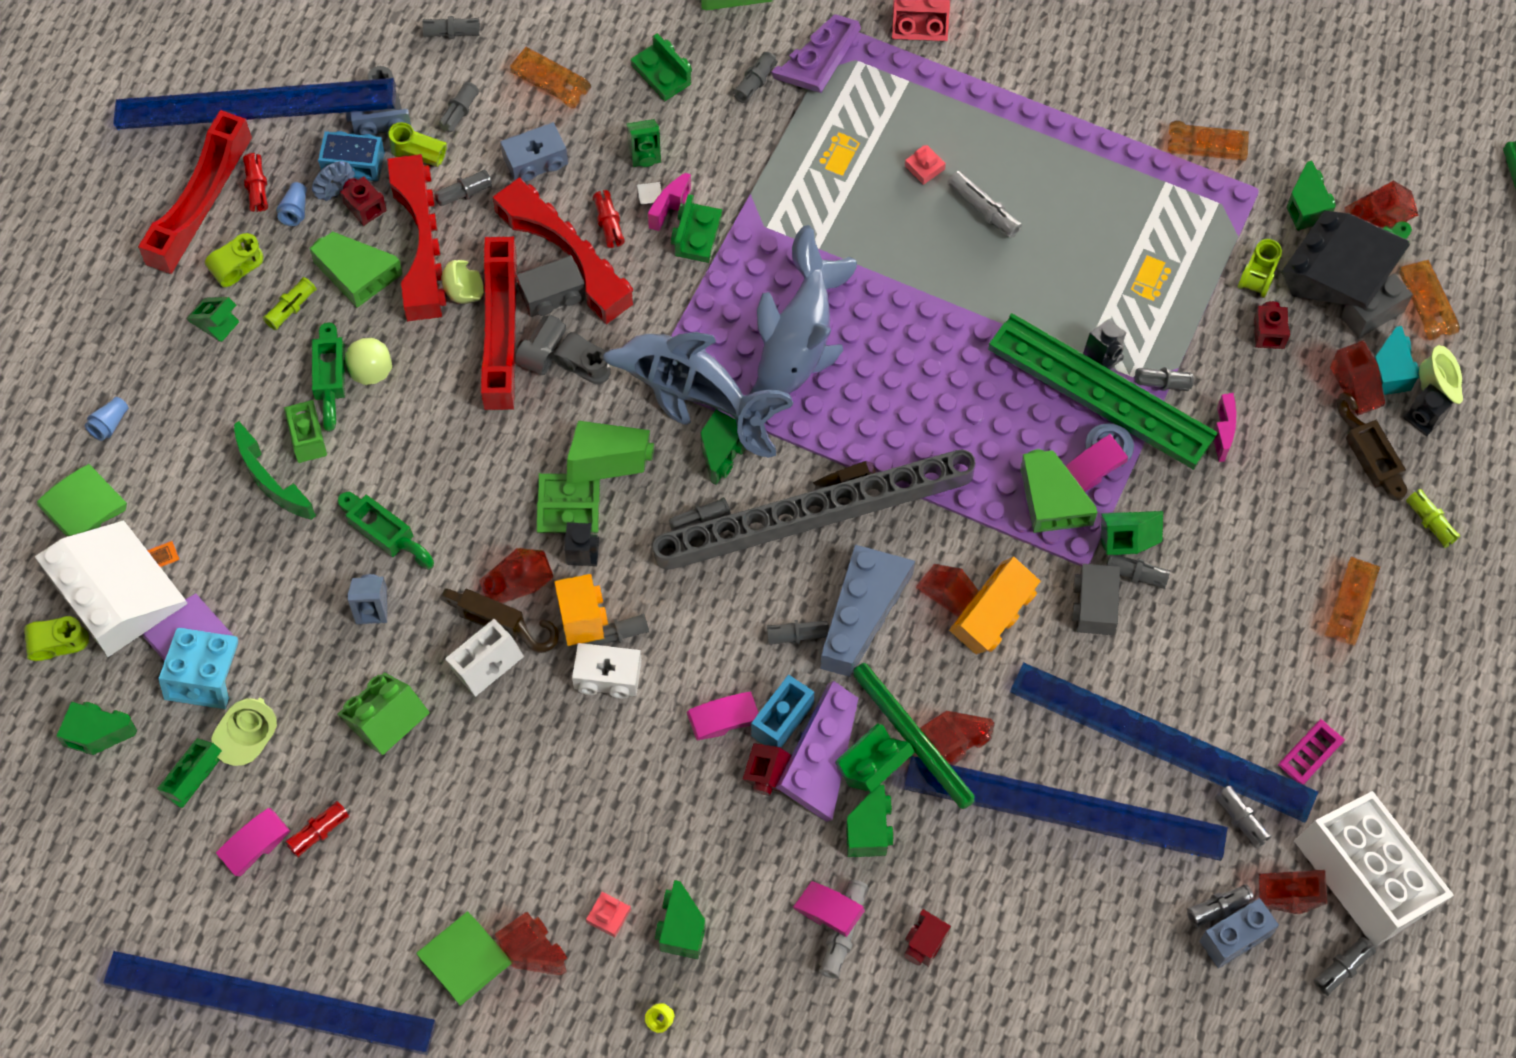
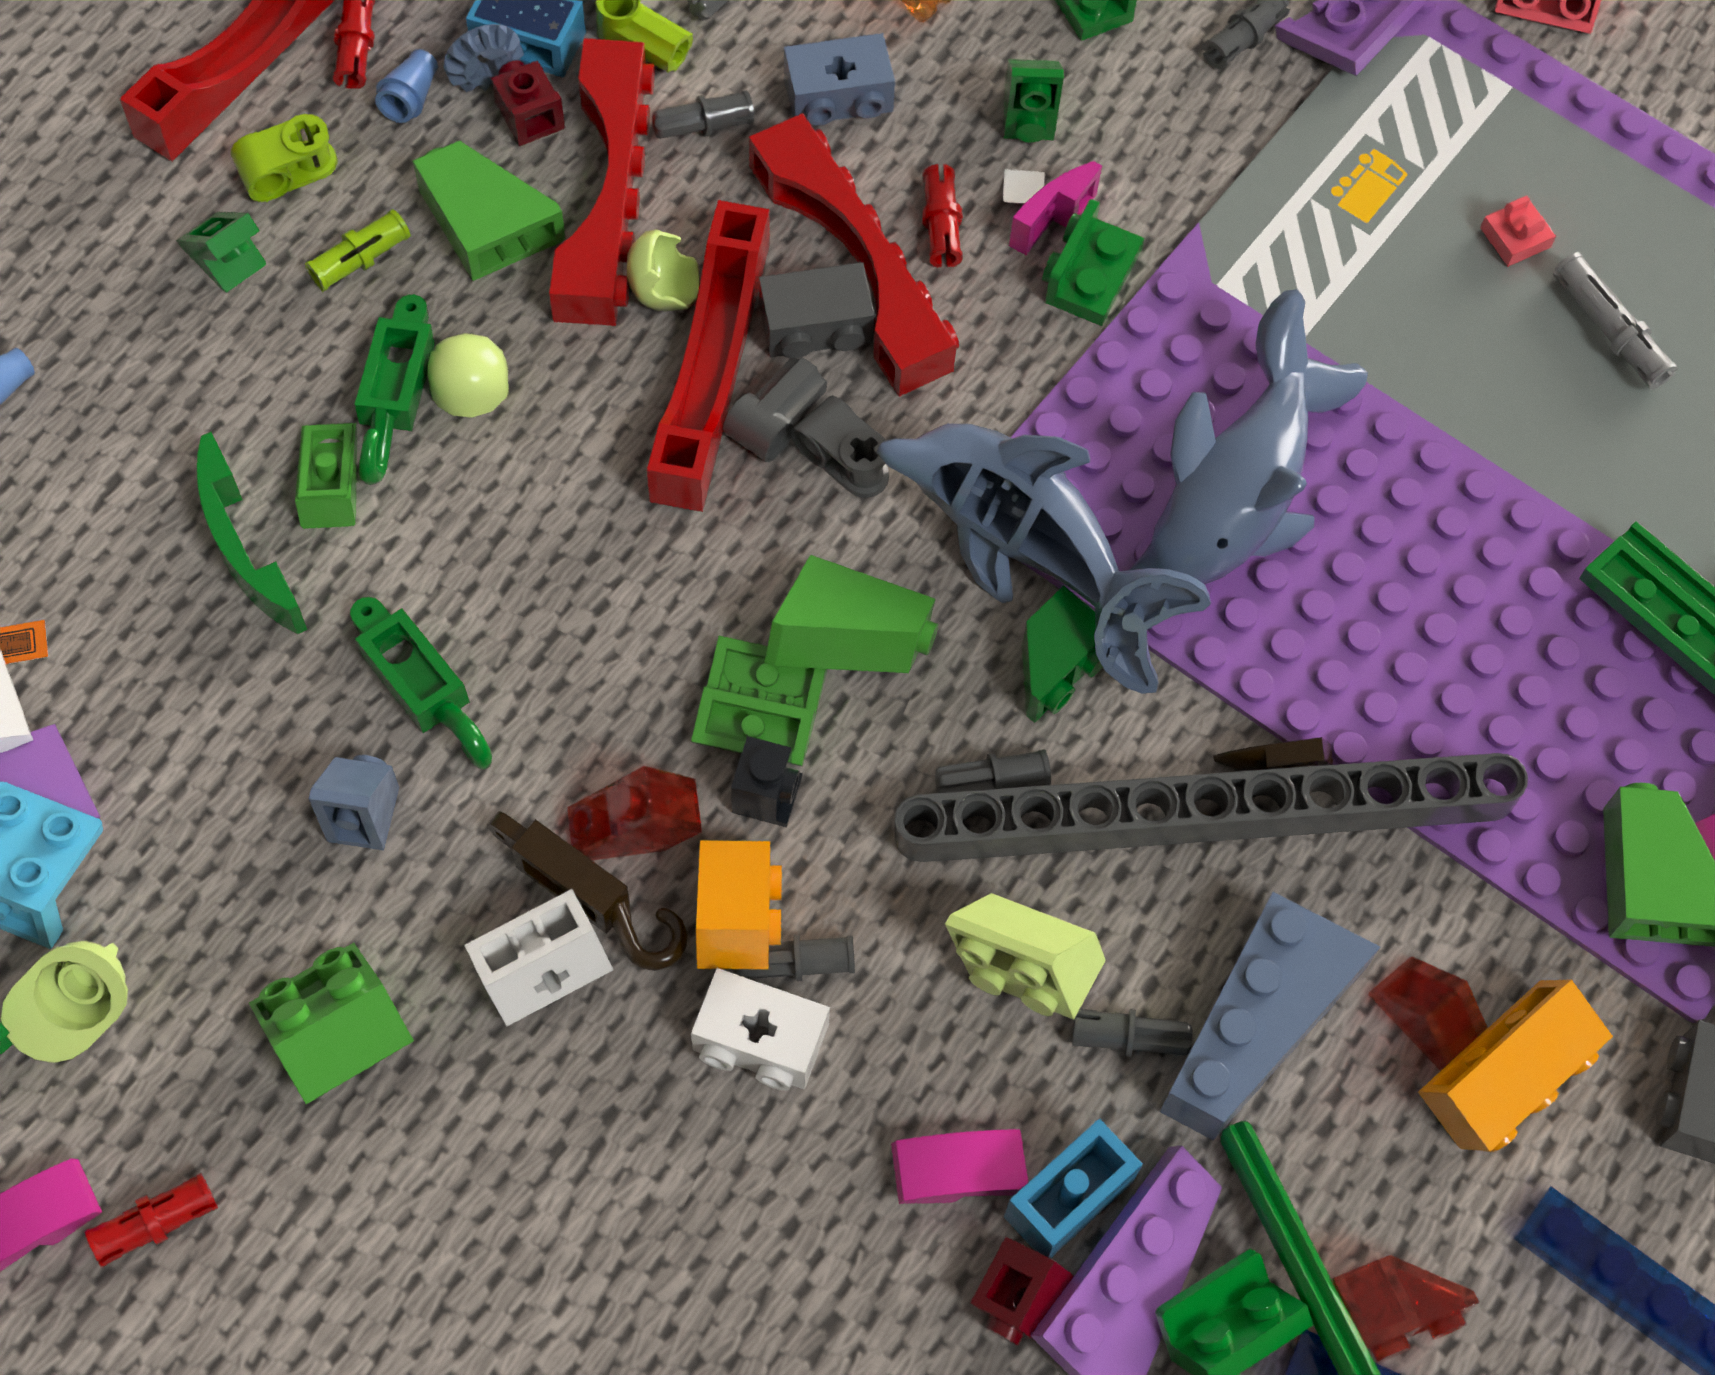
camera: 10 degrees right, 0 degrees up
(735, 603) = (1026, 954): none -> yellowish green slope

